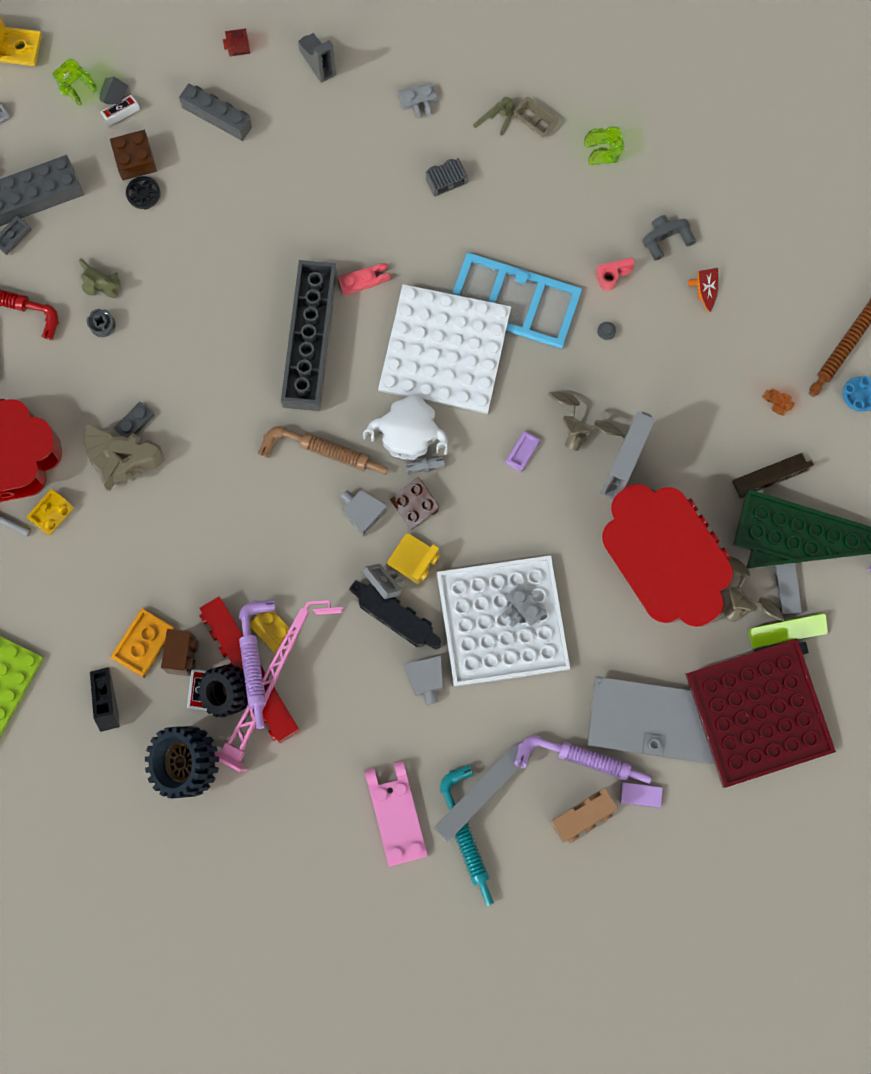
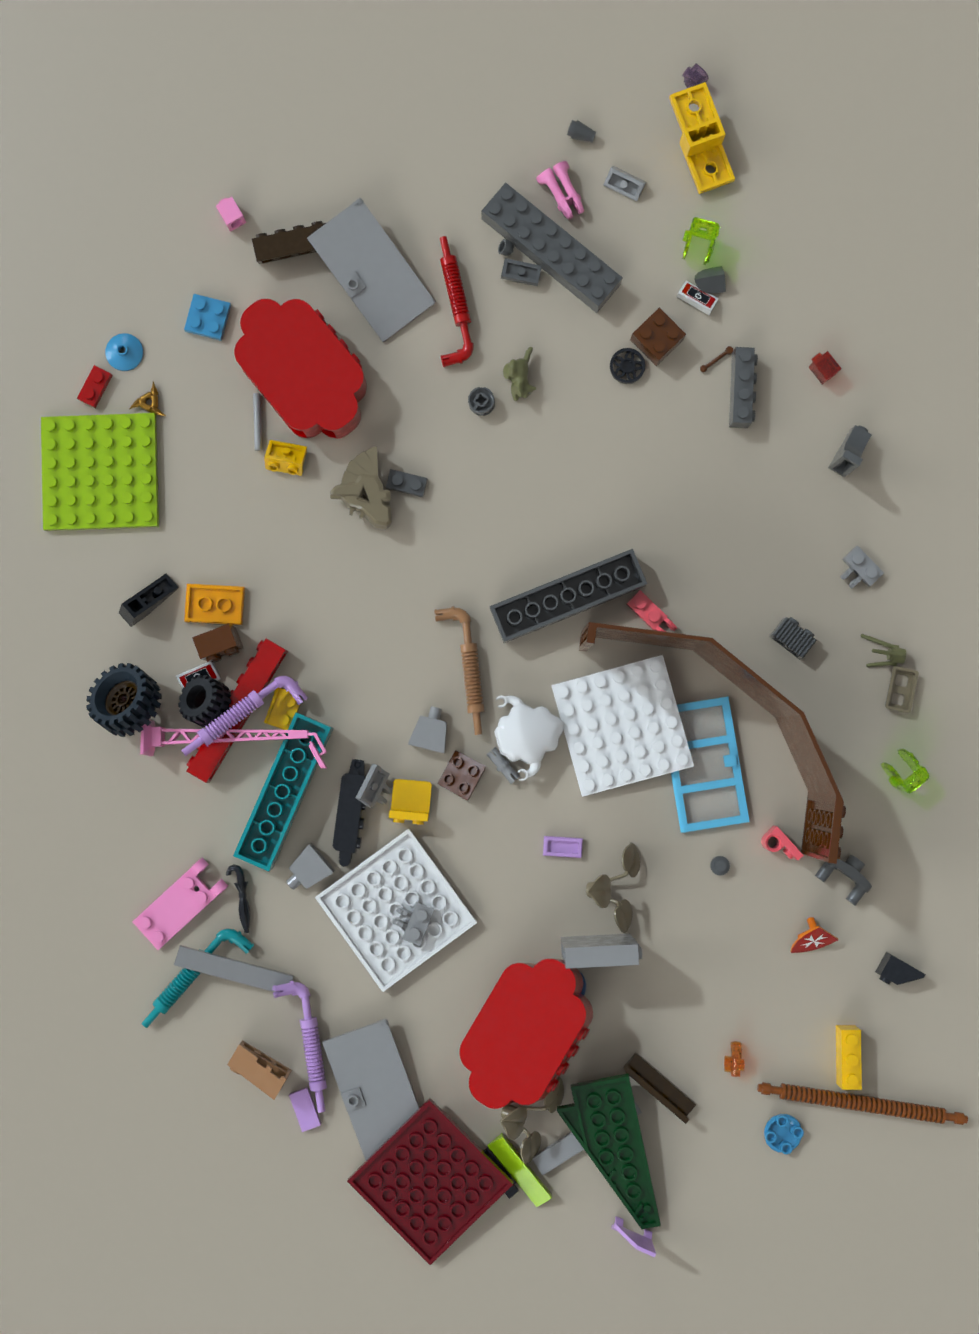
camera: 65 degrees right, 10 degrees up
(178, 108) = (729, 350): none -> reddish brown hinge
(347, 666) = (281, 795): none -> teal brick
(430, 756) = (241, 885): none -> black piece
(506, 201) = (824, 802): none -> reddish brown panel
(766, 235) = (897, 971): none -> black slope
(821, 308) = (848, 1057): none -> yellow brick

